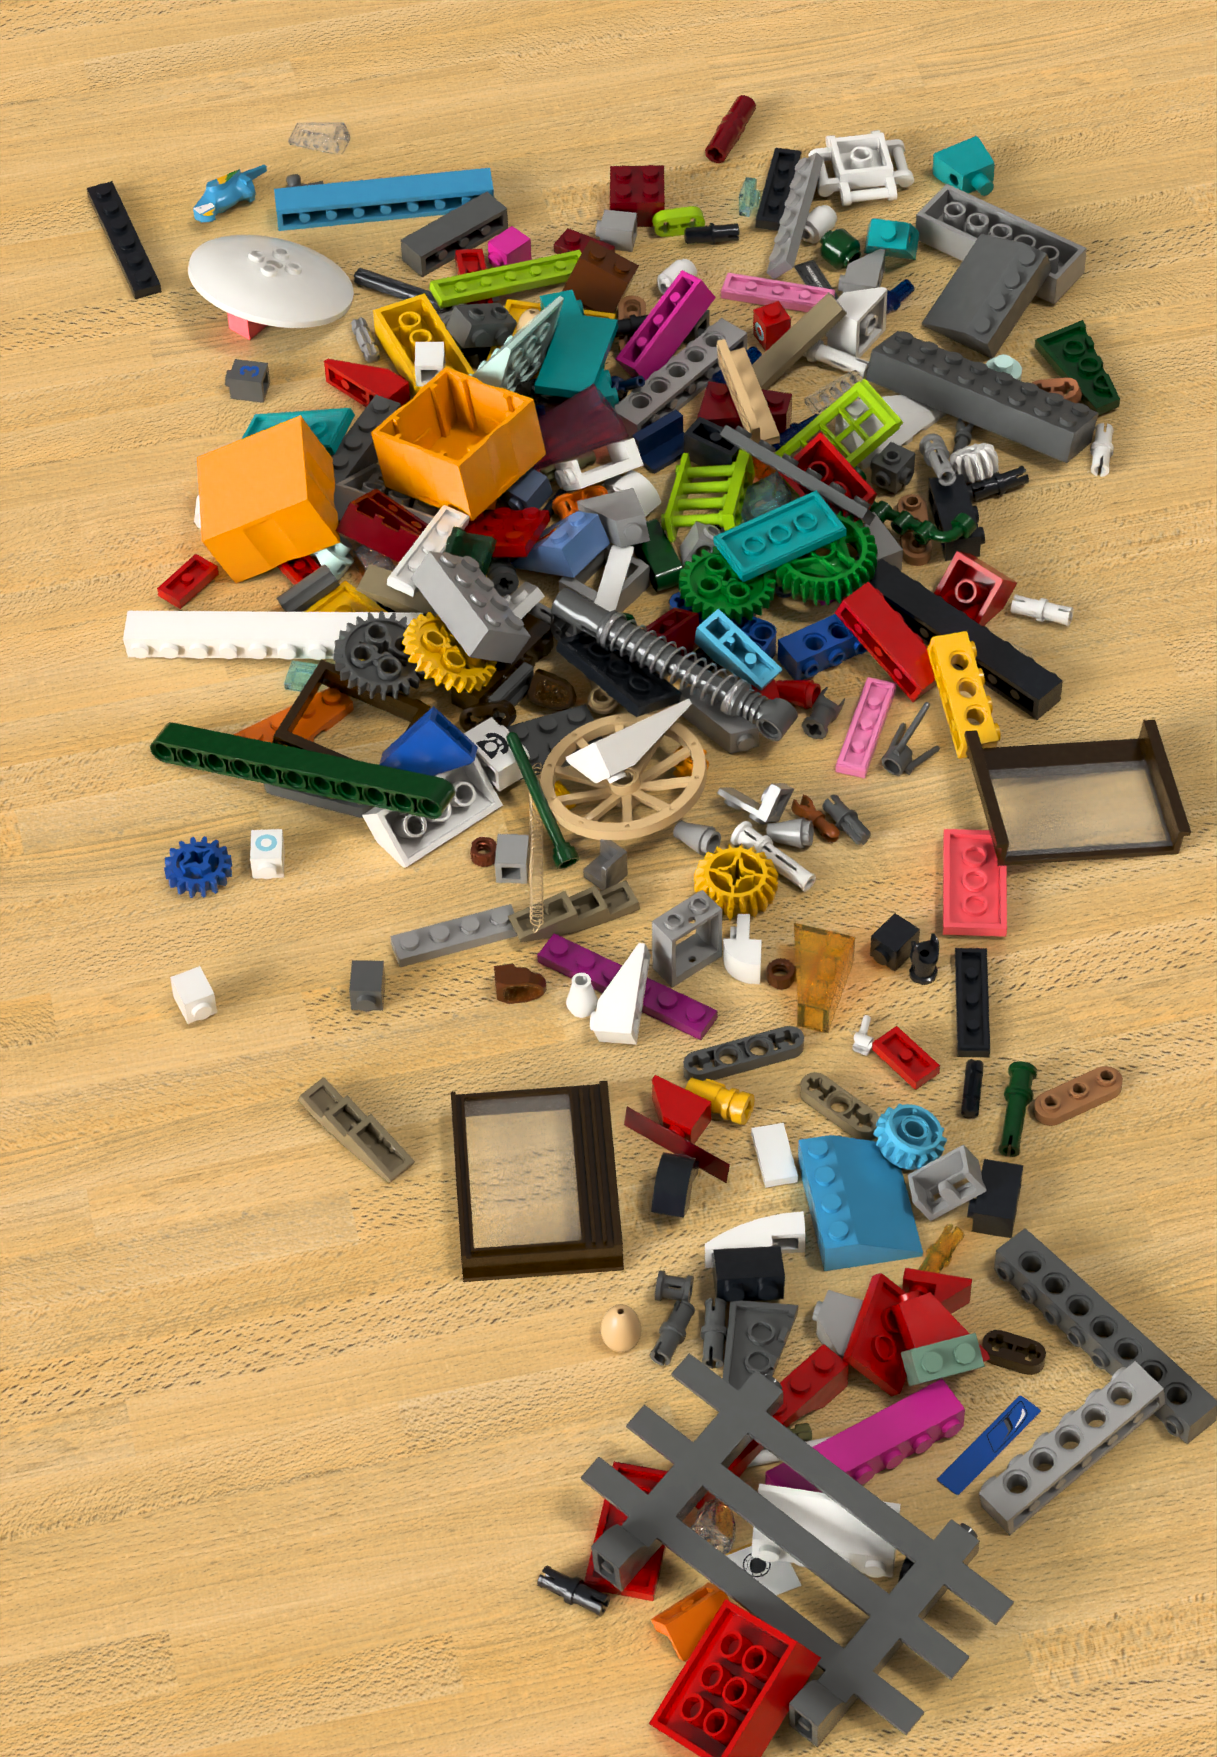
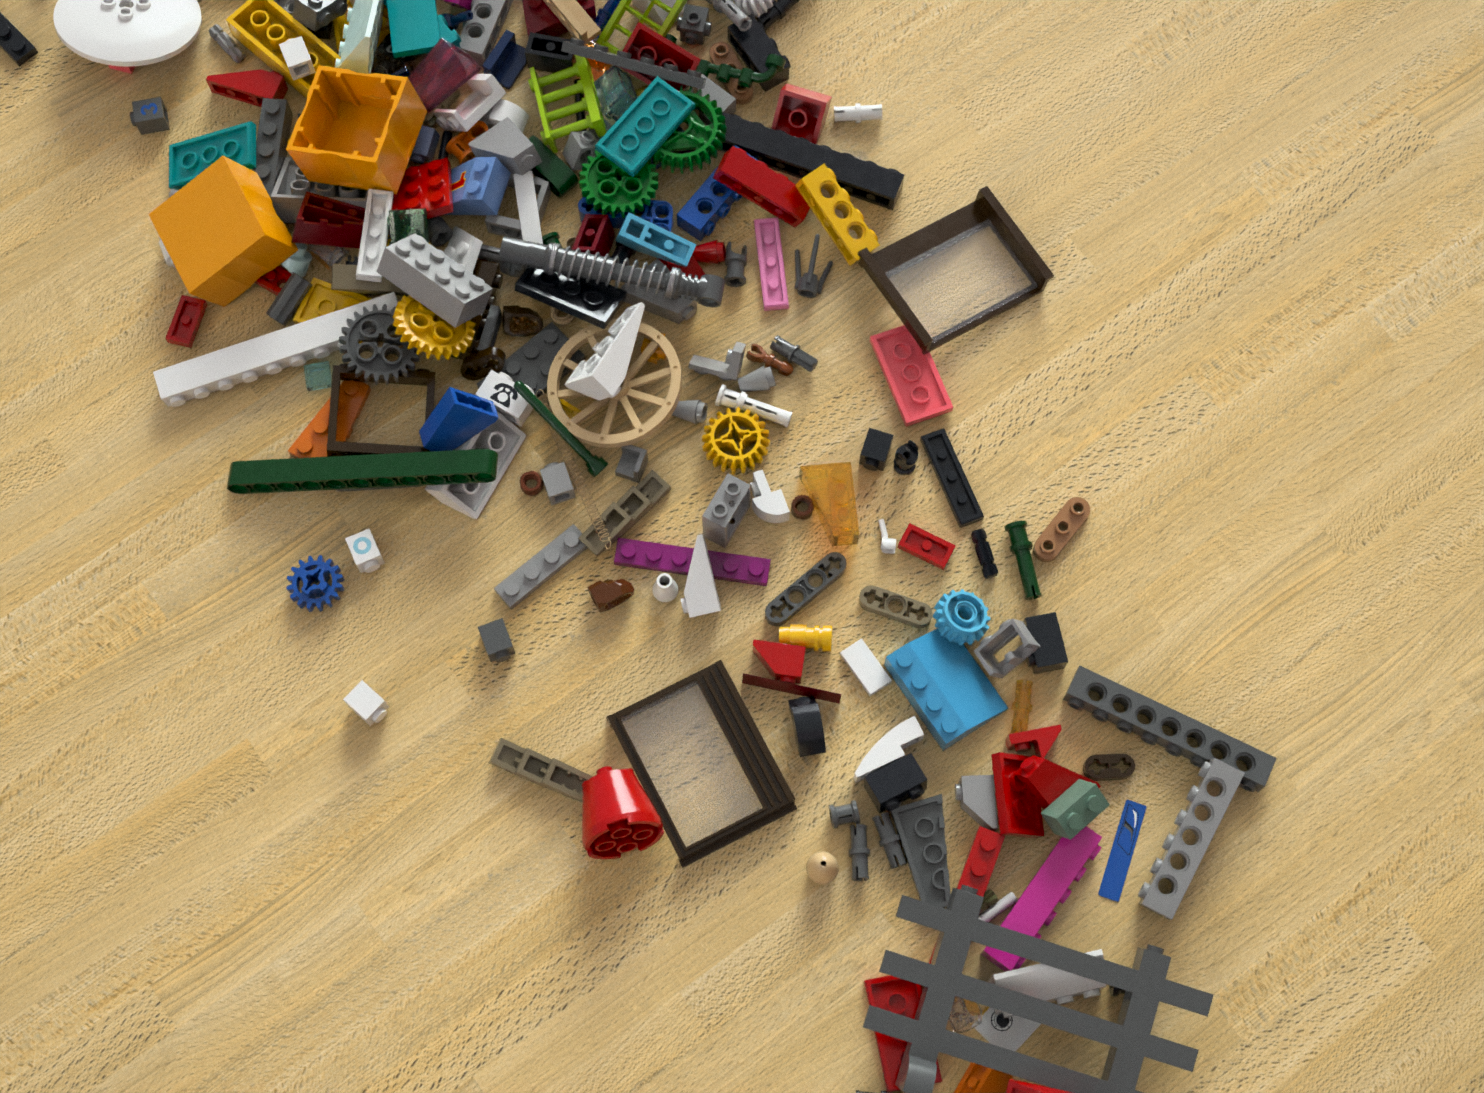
camera: 25 degrees left, 20 degrees up
(411, 1192) = (617, 815): none -> red cone

